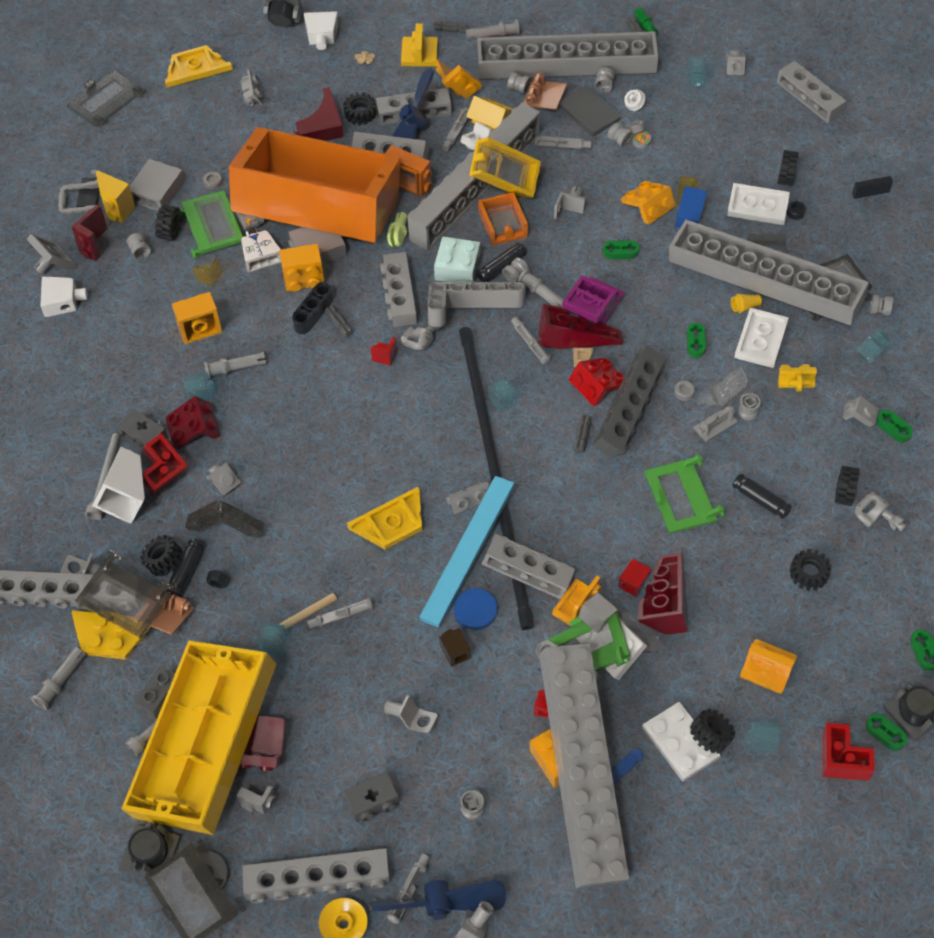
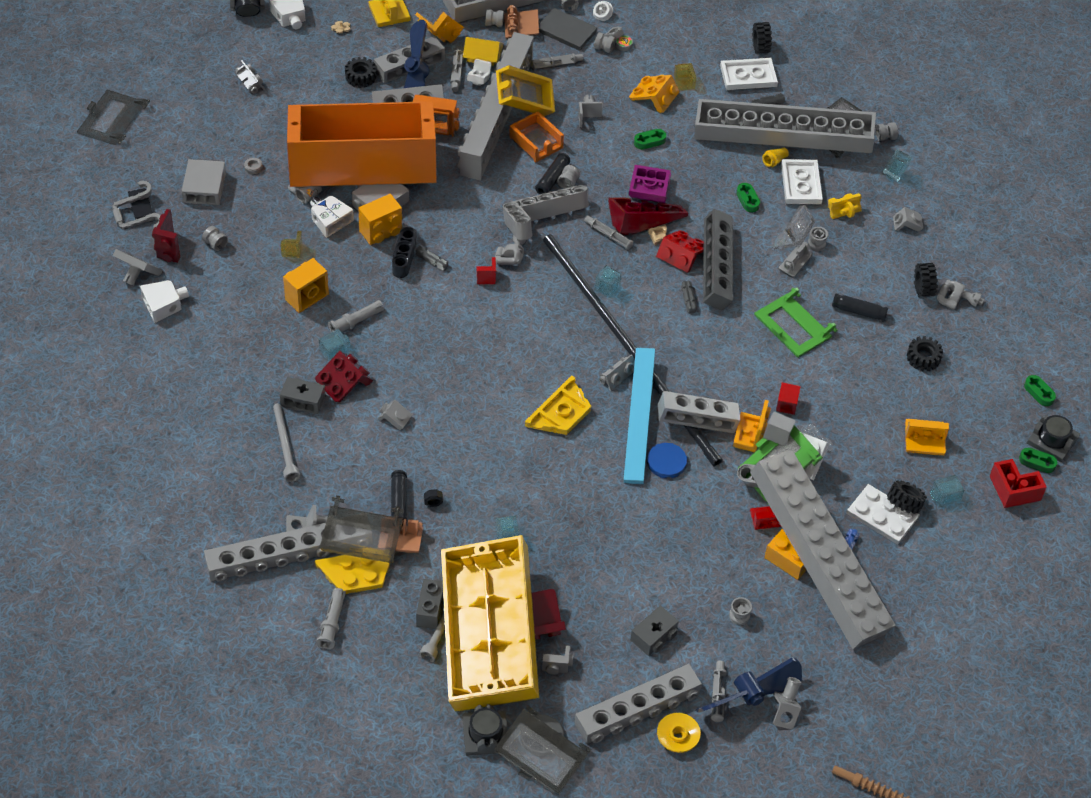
camera: 25 degrees left, 5 degrees down
(115, 197) = (172, 196): yellow slope -> none
(123, 487) = (313, 443): white slope -> none
(161, 555) = (369, 485): black tyre -> none
(166, 464) = (340, 414): red brick -> none
(168, 222) = (235, 210): black tyre -> none
(195, 65) = (185, 68): yellow wing -> none
(211, 222) = (273, 202): piece -> none
(223, 512) = (414, 439): clear smoke beam -> none
(309, 611) = (527, 499): tan bar -> none
(323, 123) = (335, 88): dark red arch -> none
(341, 613) = (554, 496): light grey piece -> none
(397, 230) = (447, 168): yellowish green arm -> none
(399, 287) = (474, 218): light grey brick -> none
(410, 714) = (655, 558): light grey bracket -> none
(454, 646) = (666, 493): dark brown brick -> none
(457, 260) = (514, 180): light aqua brick -> none
(537, 286) = (594, 186): light grey pin -> none
(665, 597) = (820, 406): dark red wedge -> none
(684, 390) = (757, 240): light grey tile -> none
(690, 205) = (694, 88): blue panel -> none
(796, 210) = (782, 71): black tile -> none
(872, 187) = (836, 38): black tile -> none
(894, 426) = (939, 225): green beam -> none

